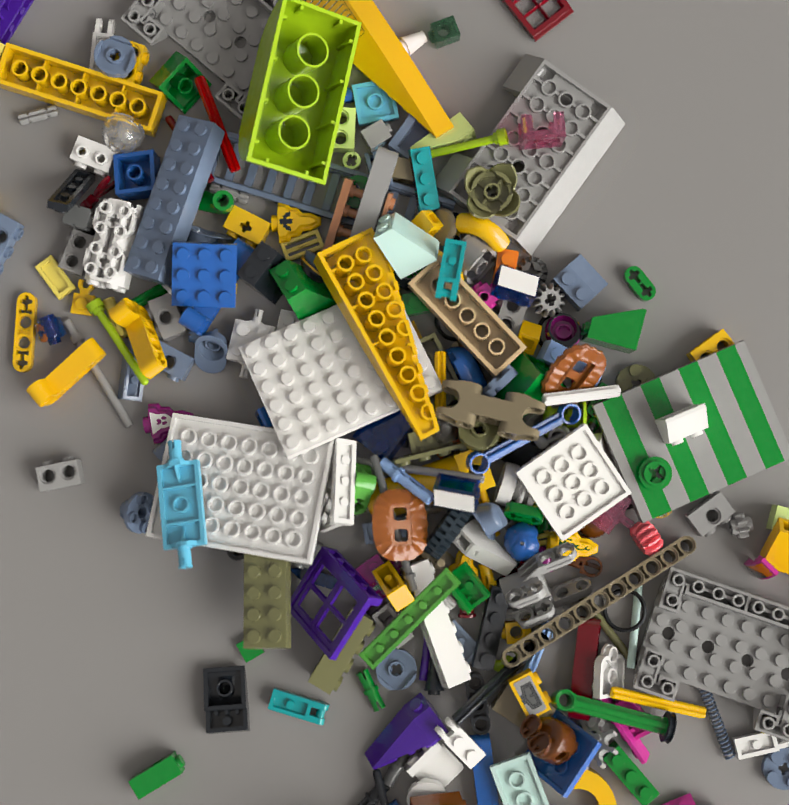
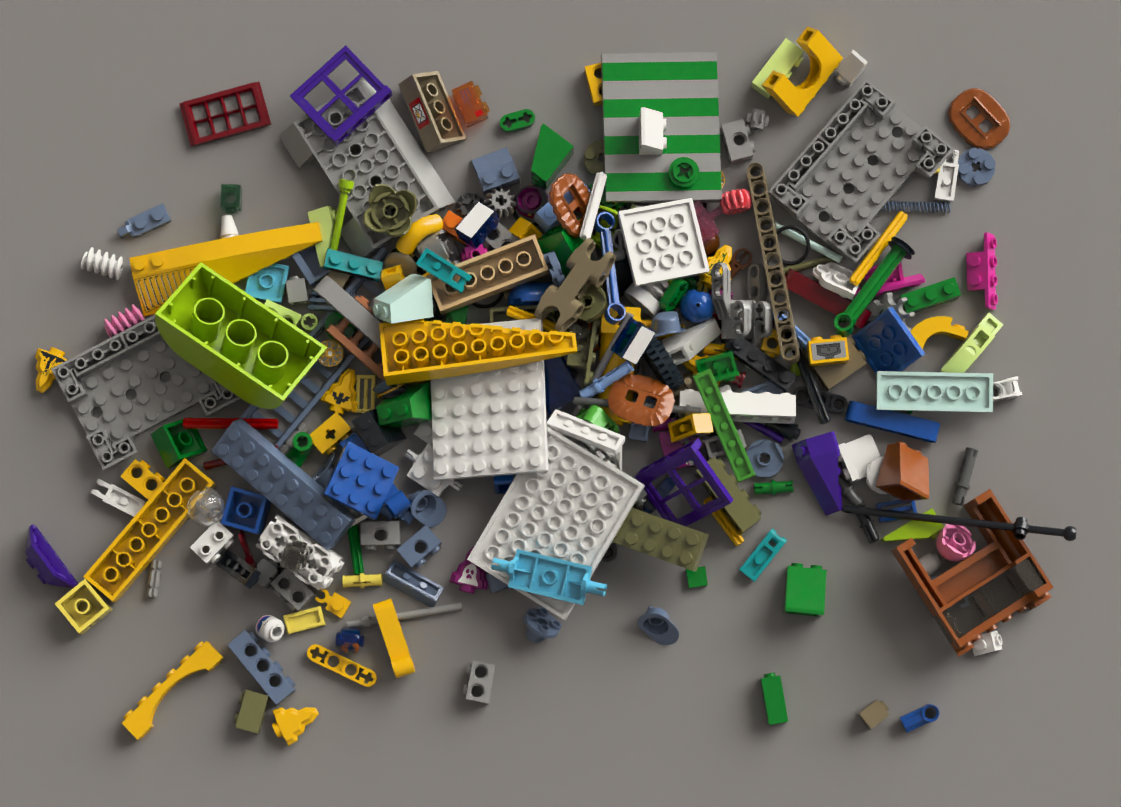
camera: 70 degrees left, 5 degrees down
(30, 246) = (269, 628): none -> white head
(96, 308) = (349, 591): lime piece -> none
(97, 239) = (295, 556): none -> clear smoke brick
(120, 67) = (141, 496): sand blue plate -> none
(141, 336) = (389, 560): yellow beam -> none
(185, 629) = (658, 626): none -> sand blue piece
(226, 699) = (733, 614): black slope -> none
(276, 764) = (804, 590): none -> green slope
(315, 656) = (726, 524): none -> yellow axle
(327, 194) = (332, 355): none -> wheel
(461, 743) = (847, 425): white hinge -> none
(541, 138) = (364, 141): clear pink panel -> none
(549, 738) = (870, 349): reddish brown piece -> none
(579, 121) = (359, 114): none -> dark purple window
(614, 194) = (432, 111): none -> dark tan slope
(636, 229) = (470, 104): none -> clear orange brick
(761, 568) = (799, 117): slope -> none

